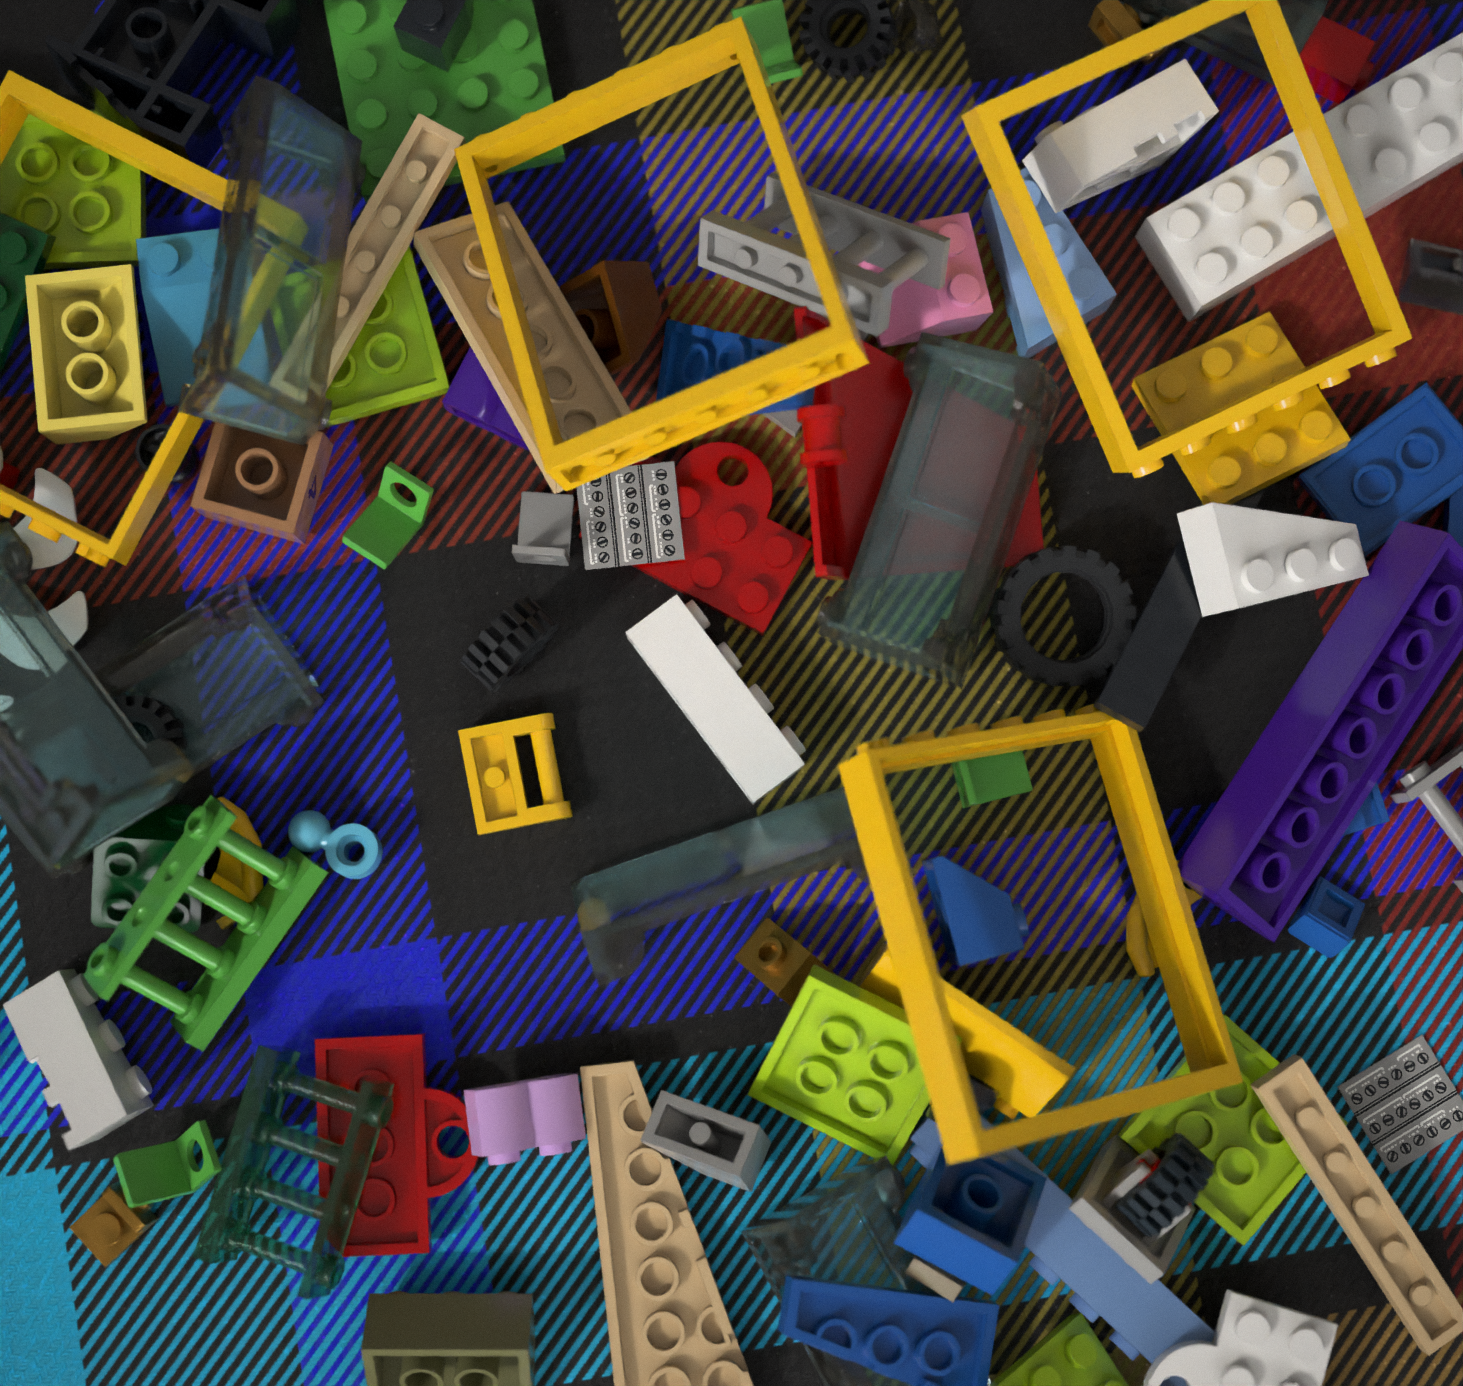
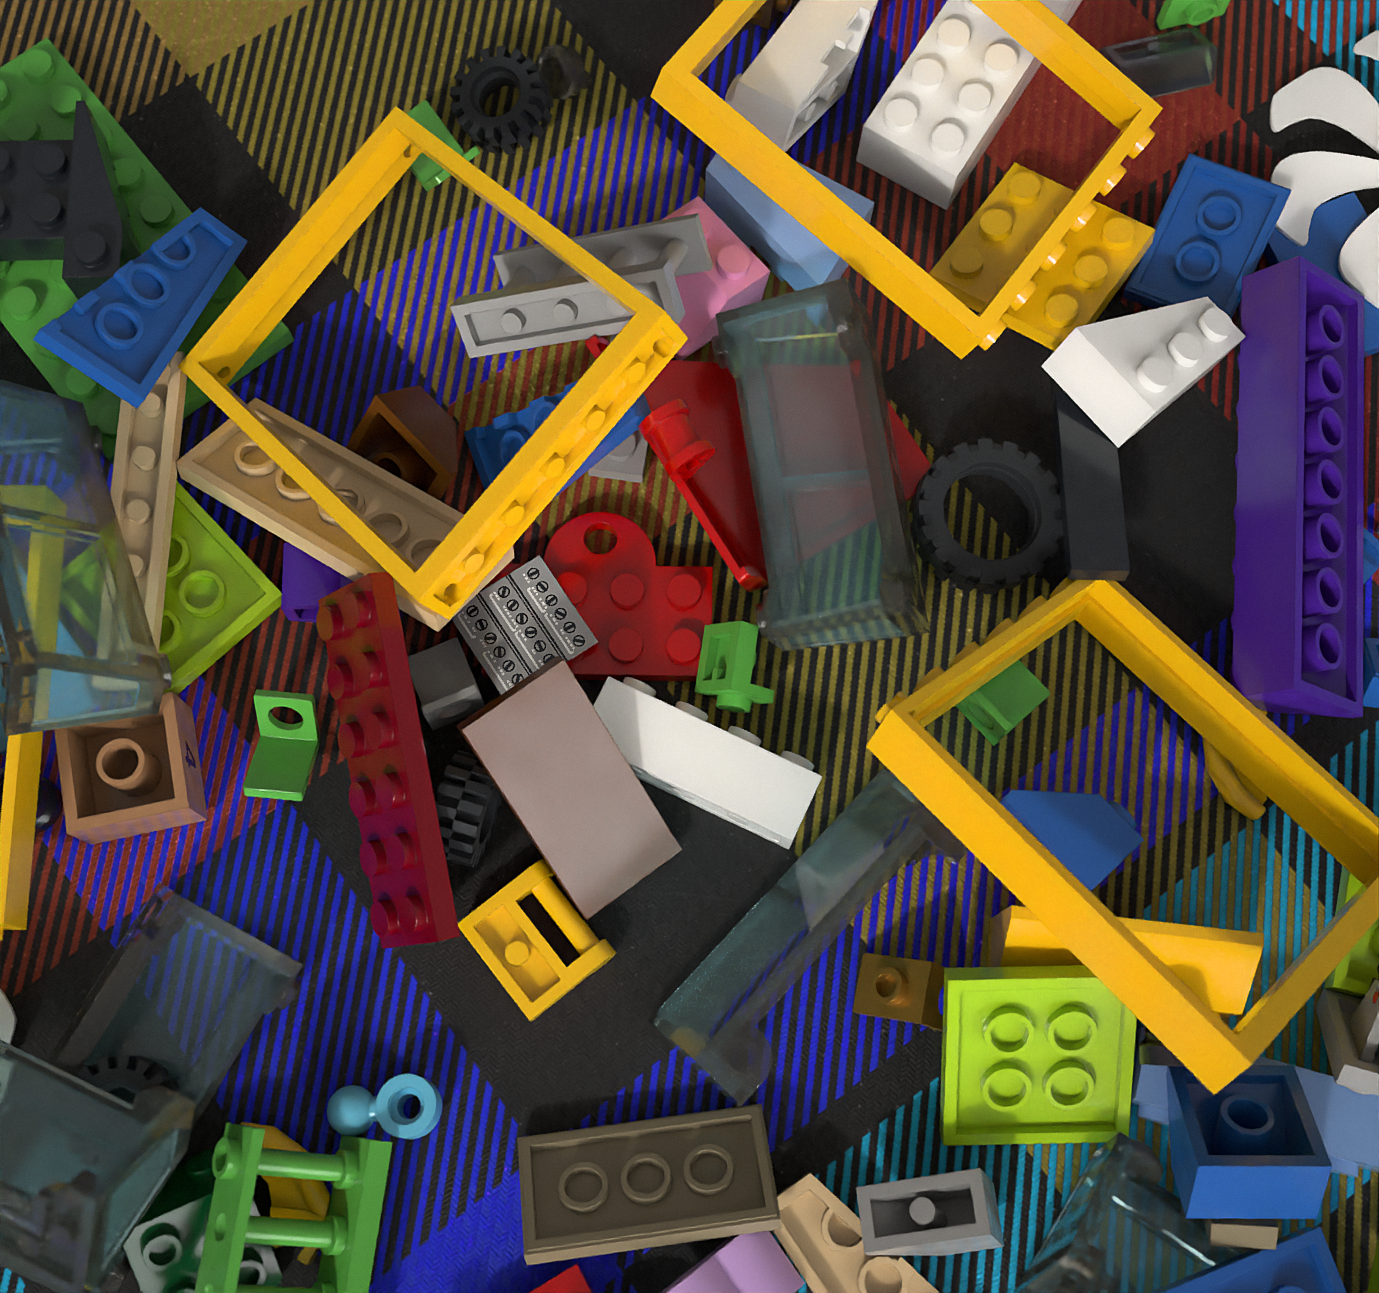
camera: 25 degrees left, 10 degrees down
(446, 92) = (144, 312): none -> blue wing
(463, 576) = (386, 763): none -> dark red plate
(504, 1003) = (646, 1184): none -> dark tan tile
(599, 670) = (570, 786): none -> tile
(777, 633) = (727, 667): none -> bright green bracket

